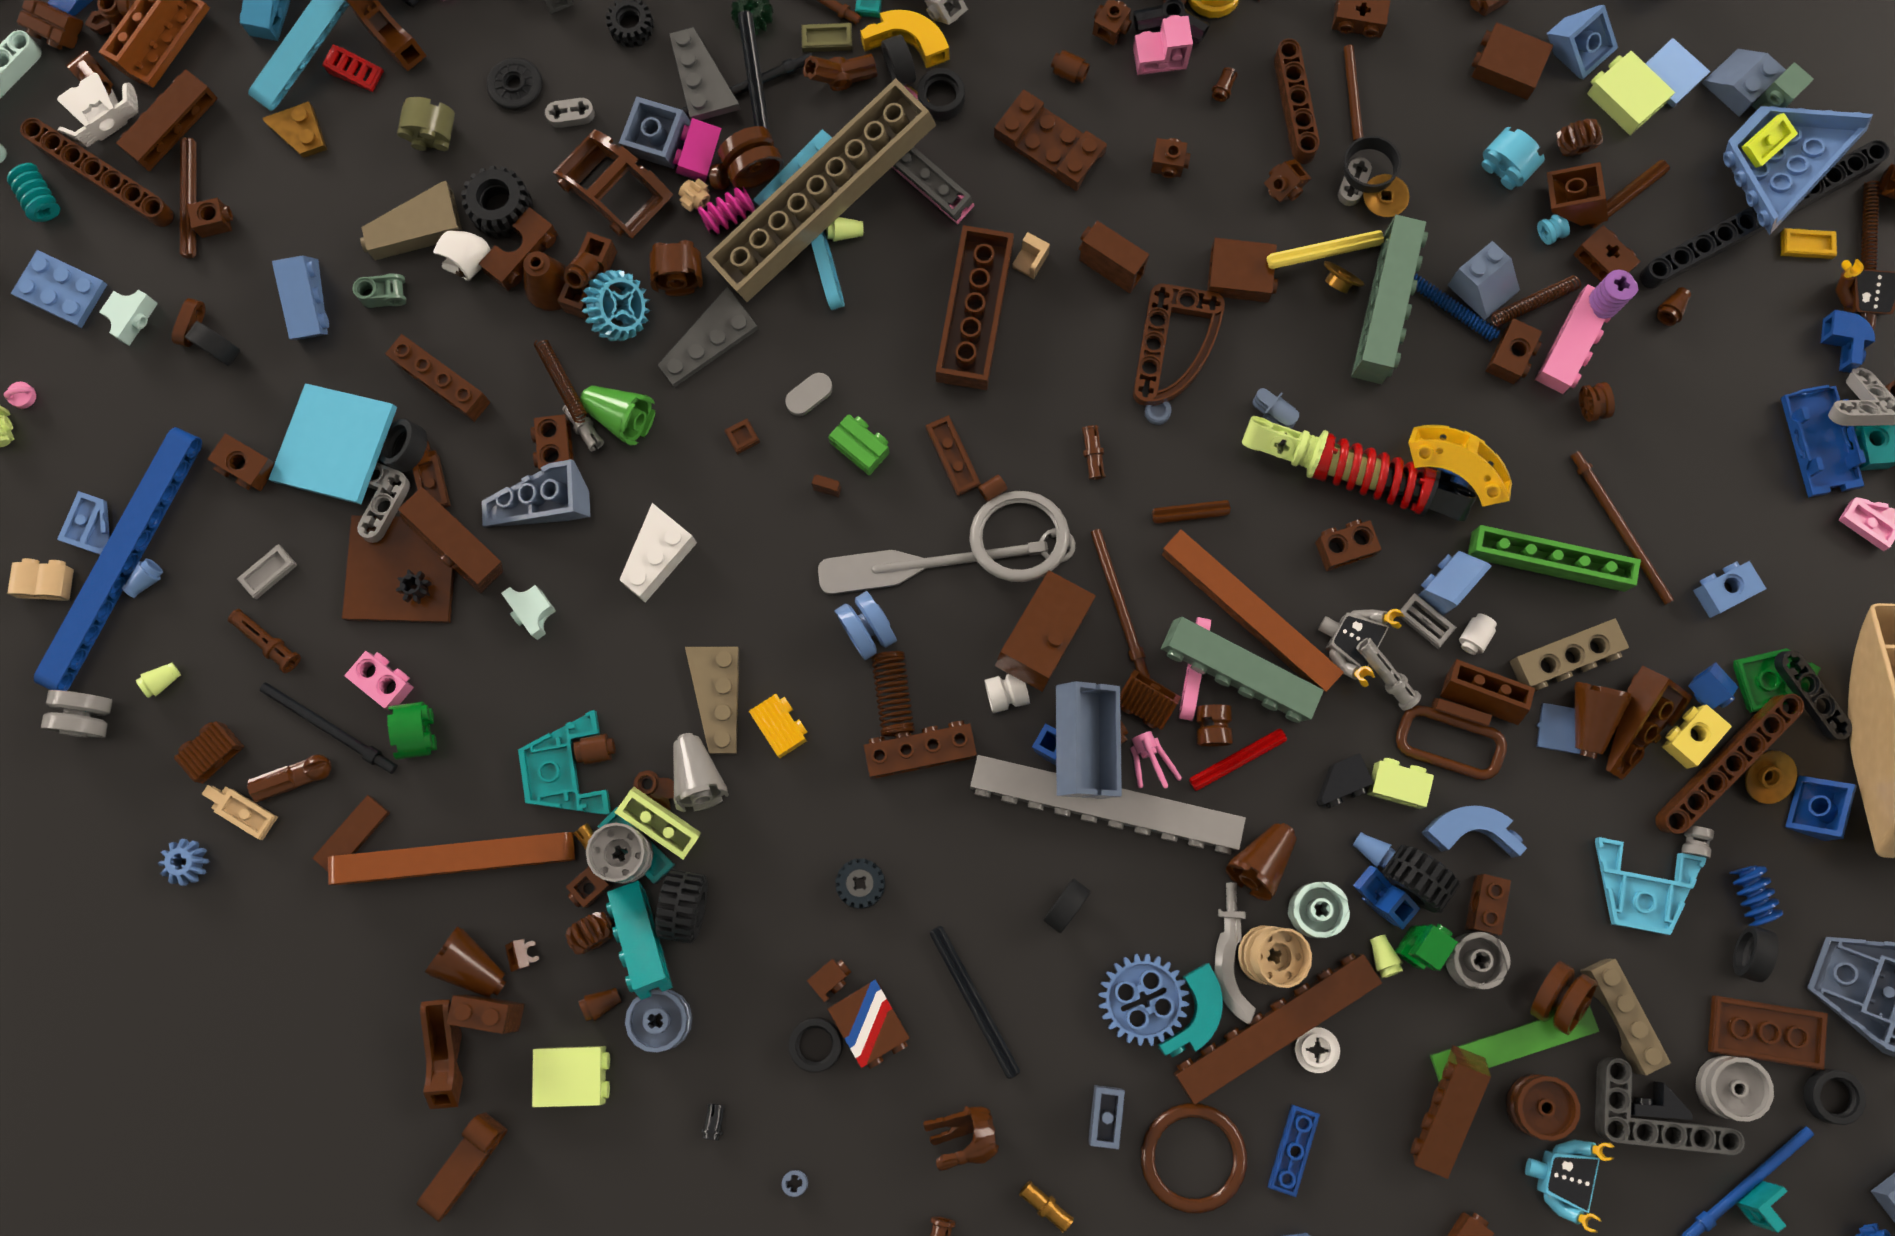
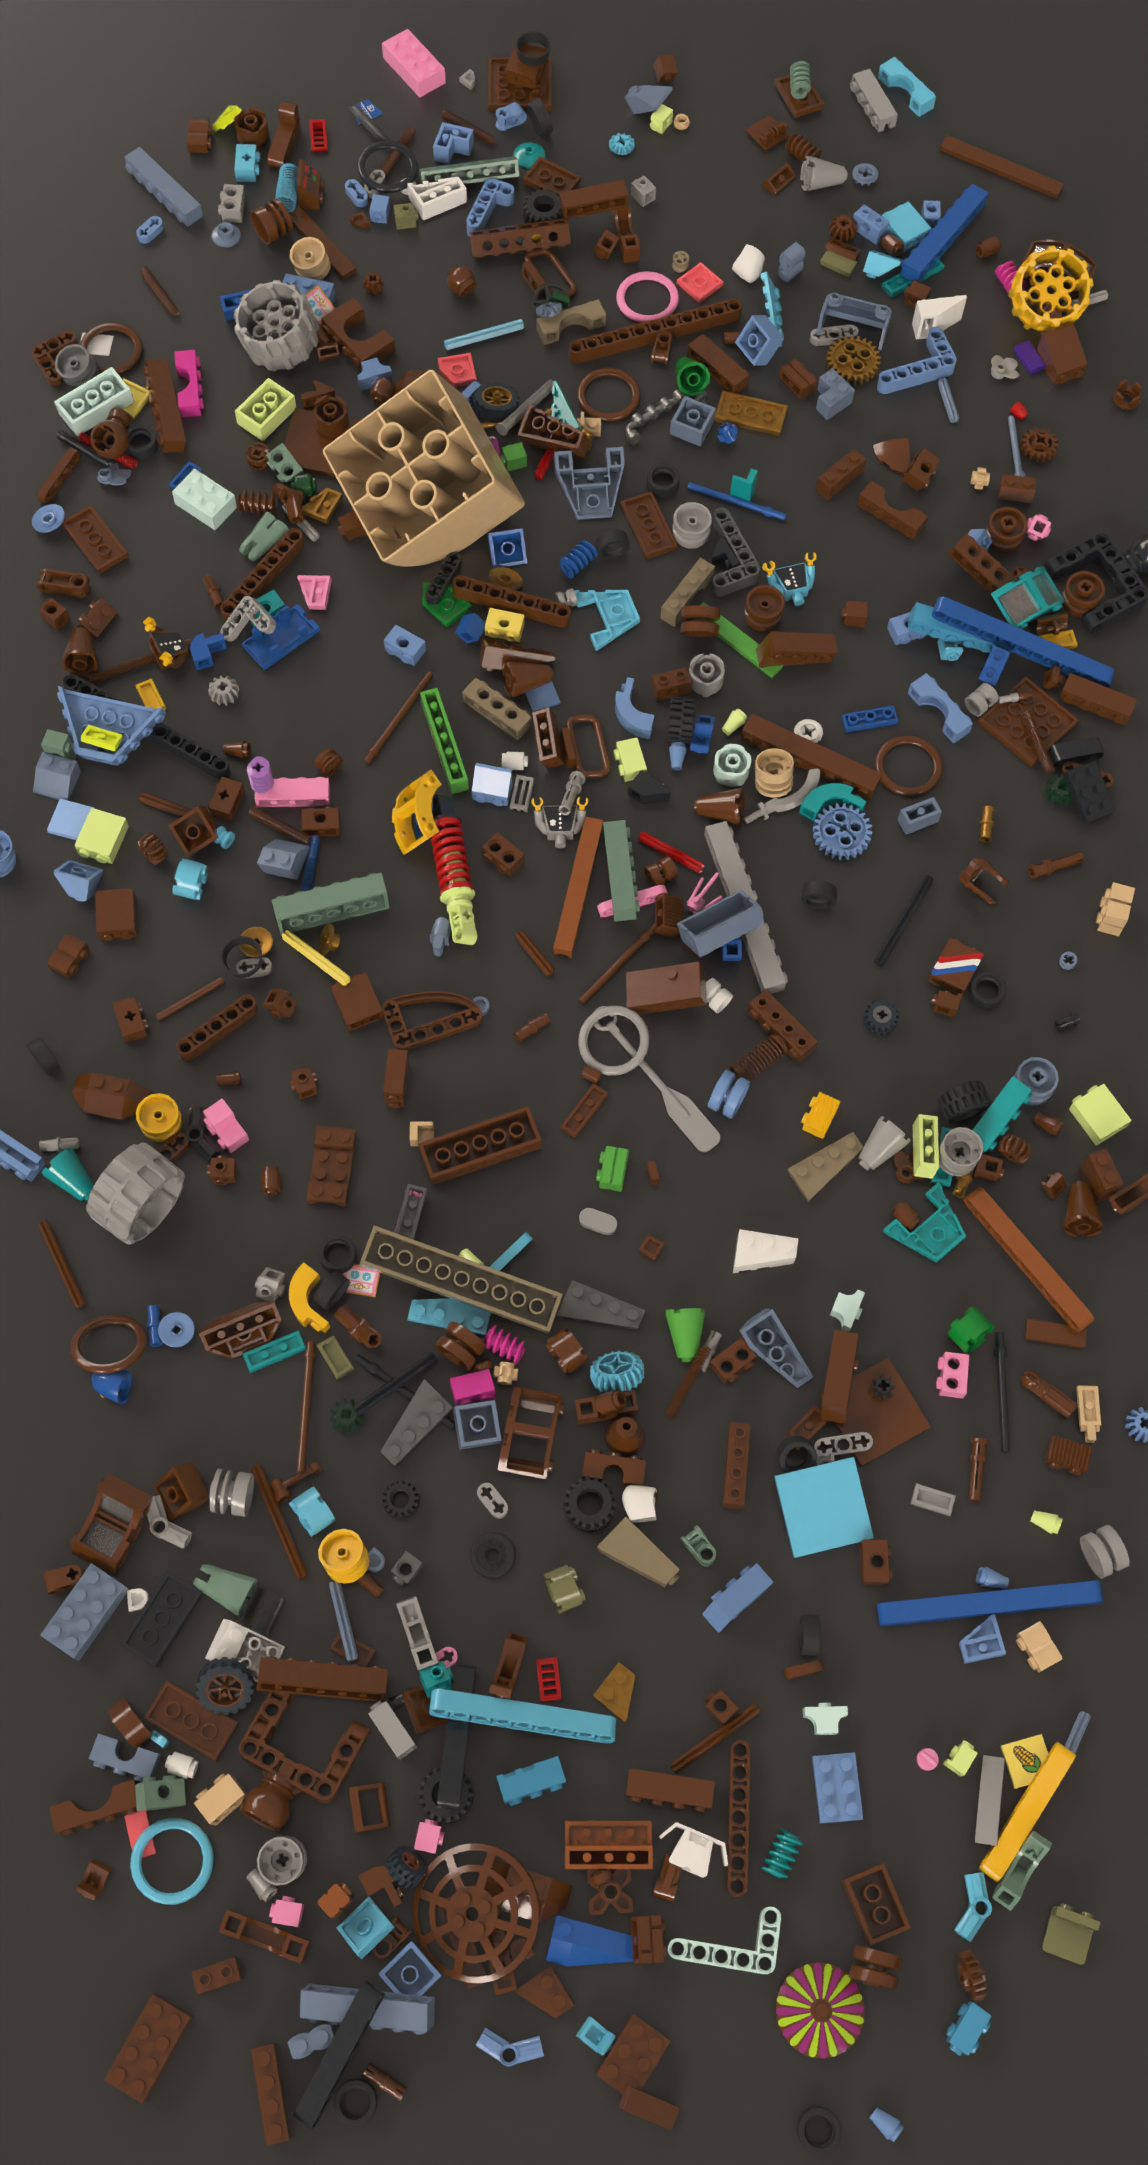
camera: 125 degrees left, 10 degrees down
(1426, 946) = (718, 697): green arch -> none
(1773, 330) = (223, 690): none -> light grey gear

